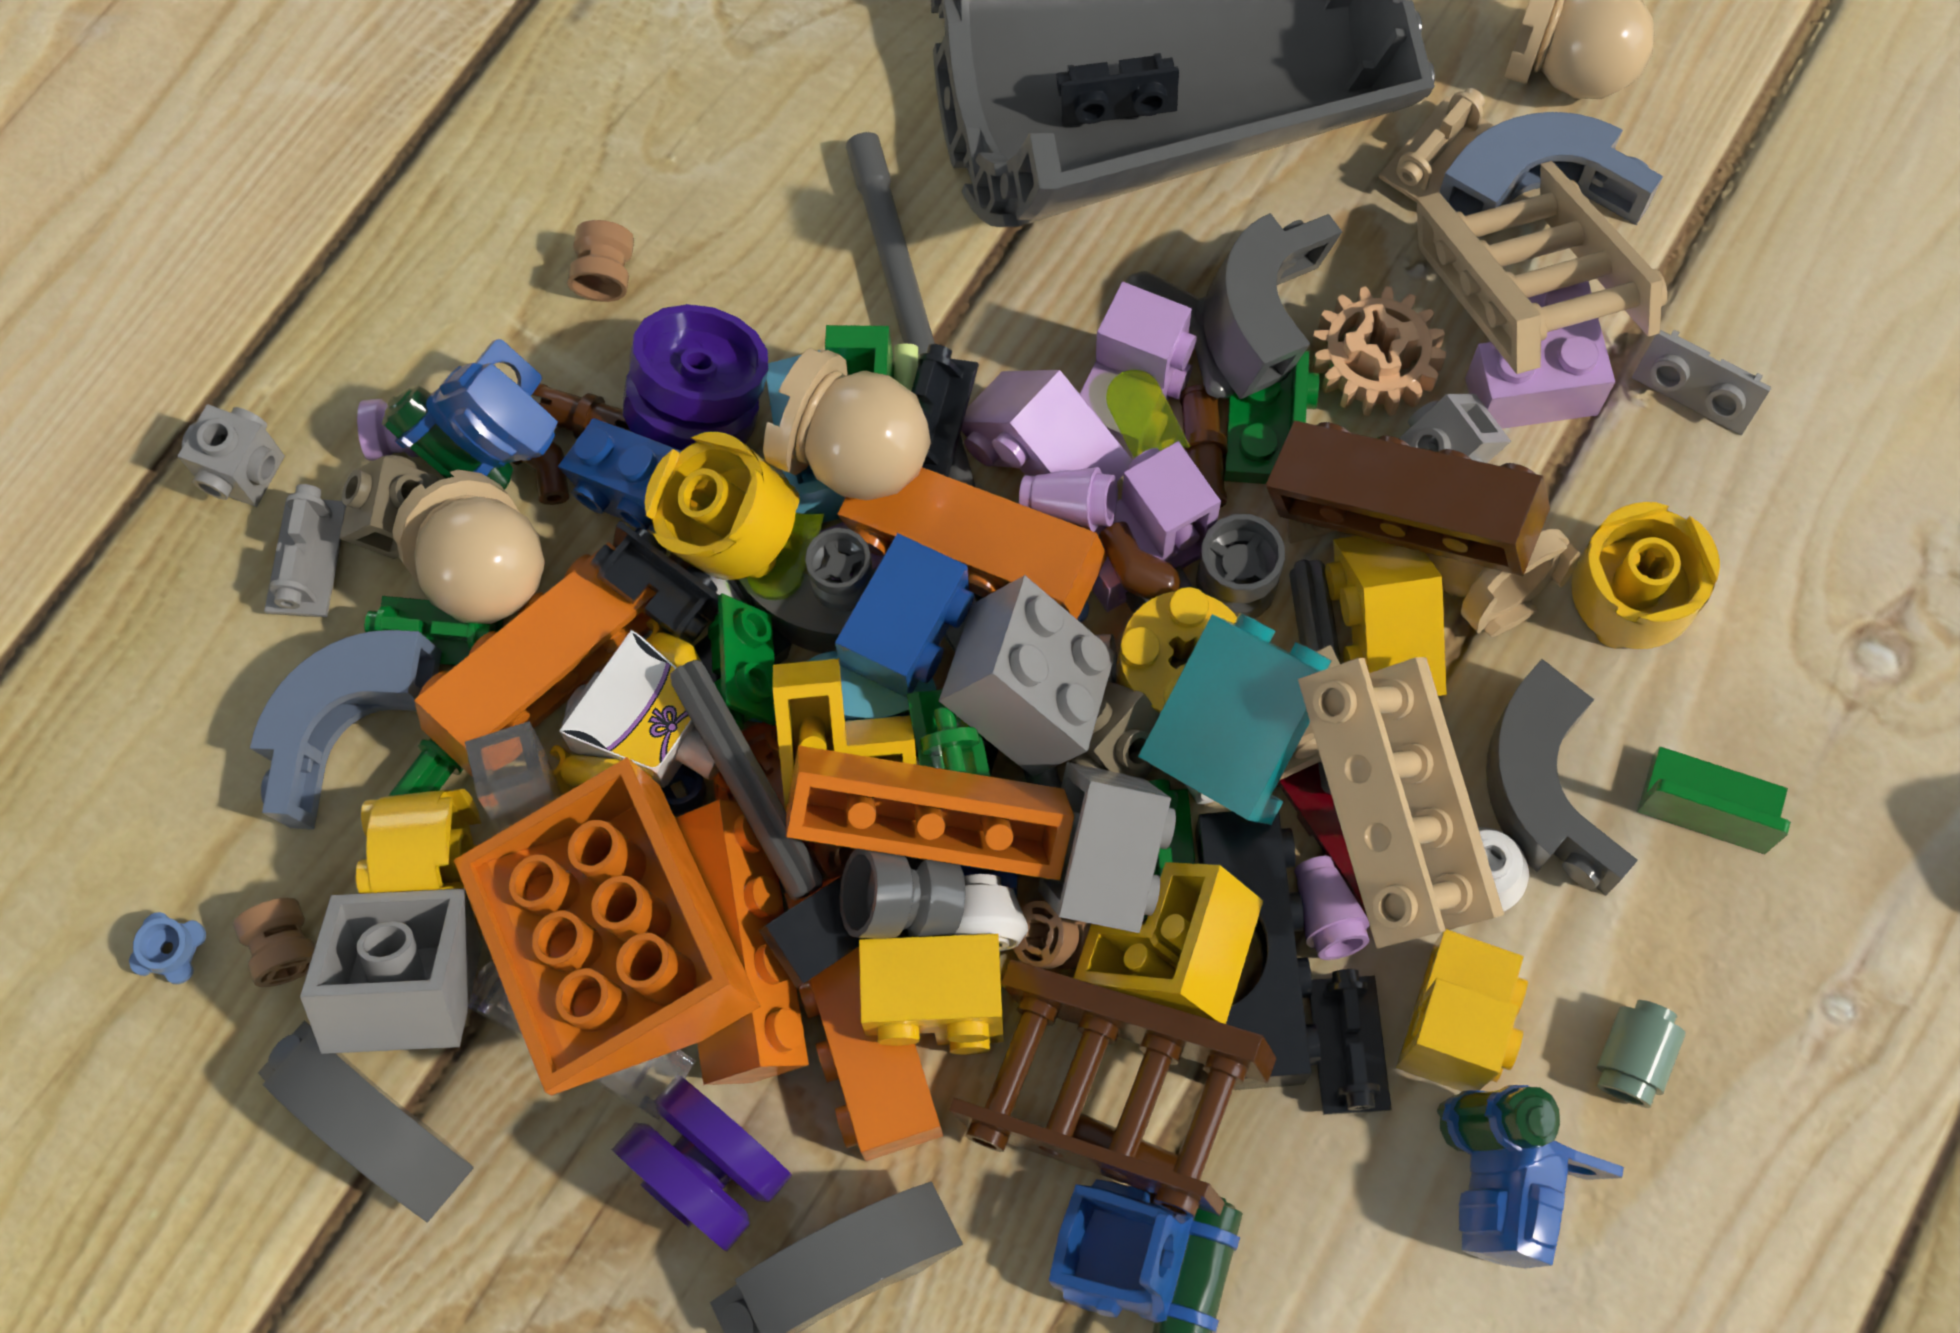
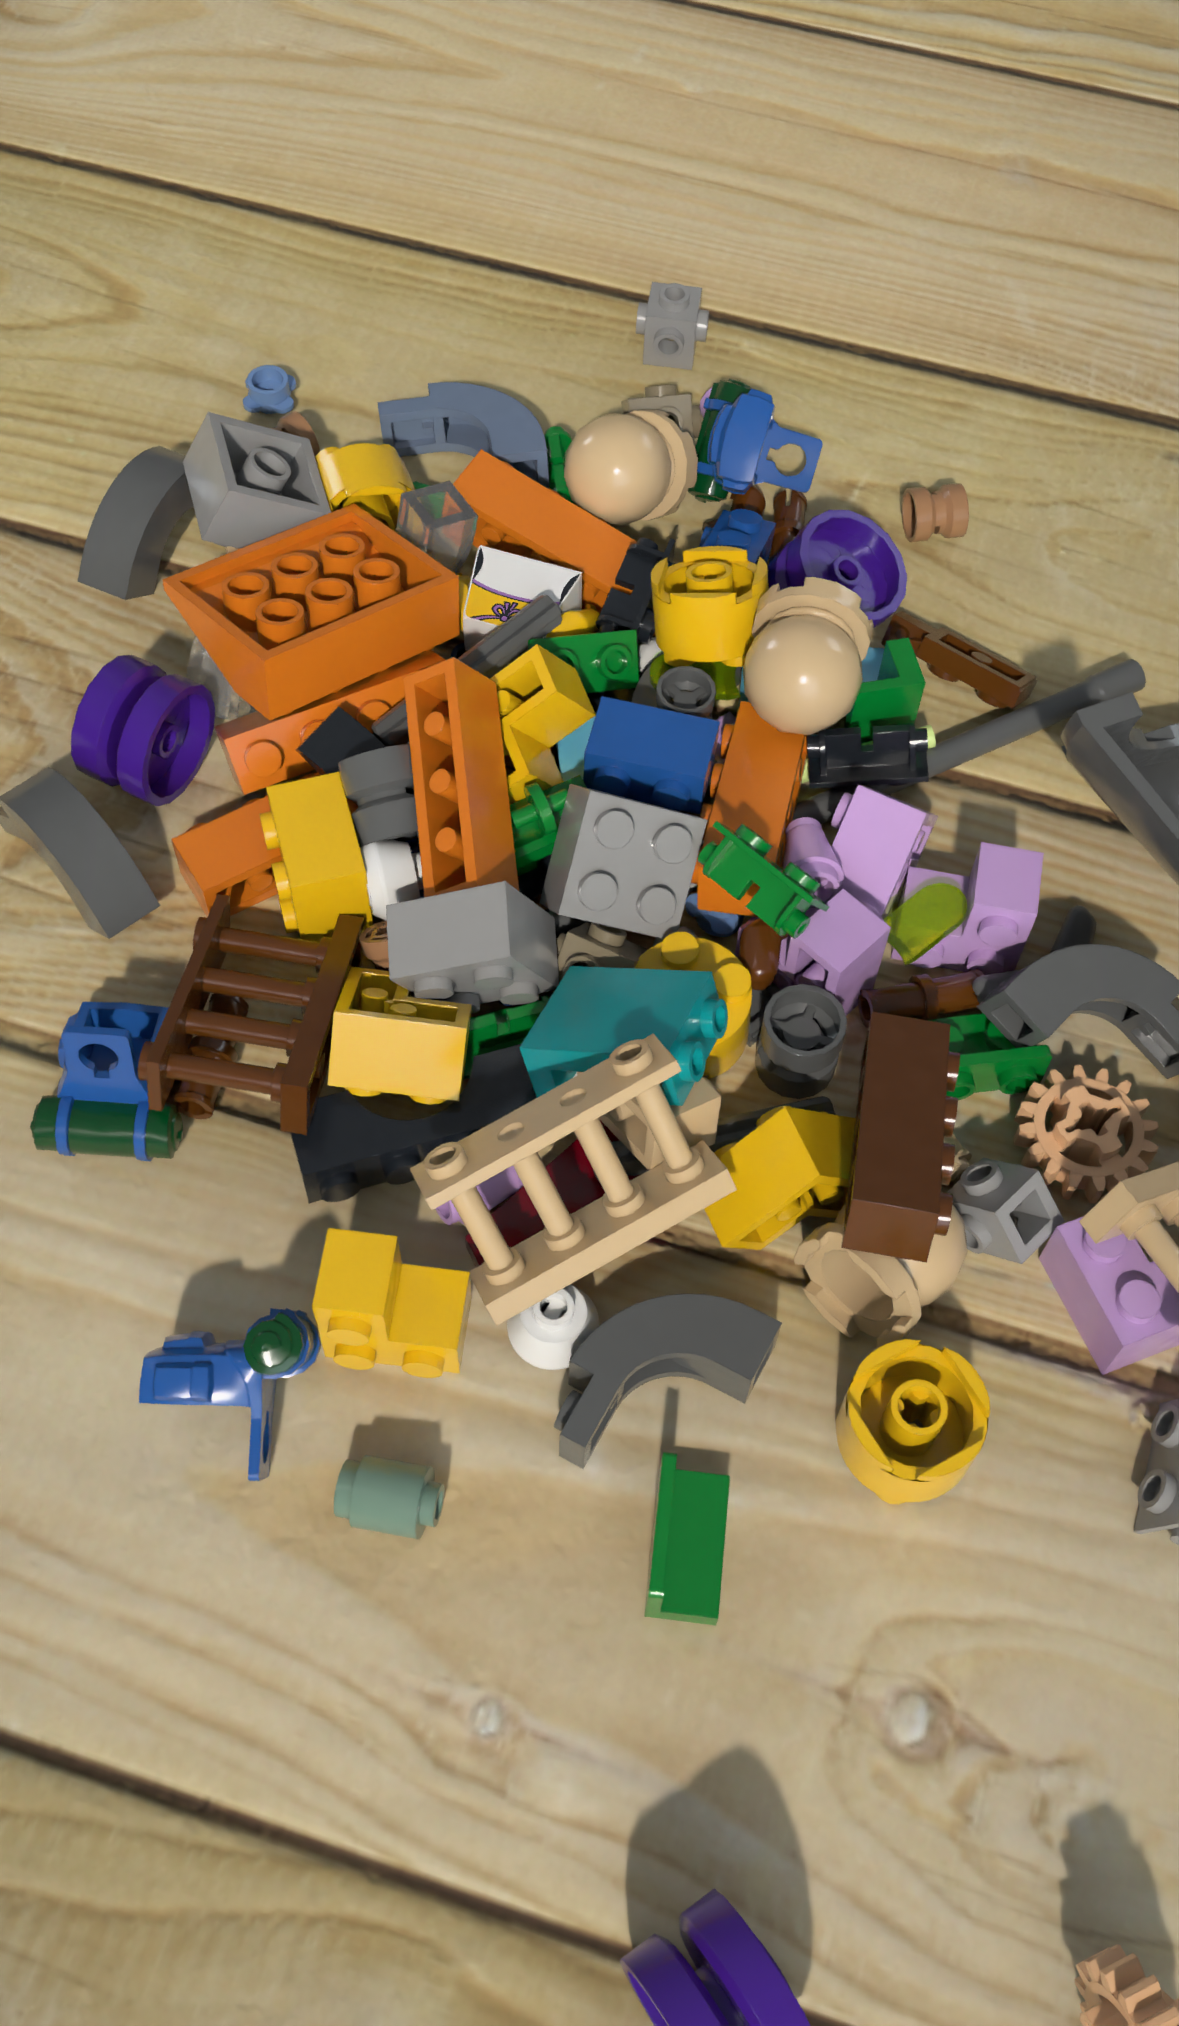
camera: 70 degrees right, 10 degrees down
(306, 554) = (586, 394): light grey hinge -> none
(813, 288) = (958, 659): none -> reddish brown hinge
(1087, 547) = (782, 893): none -> green hinge
(1351, 1044) = (378, 1211): black hinge -> none

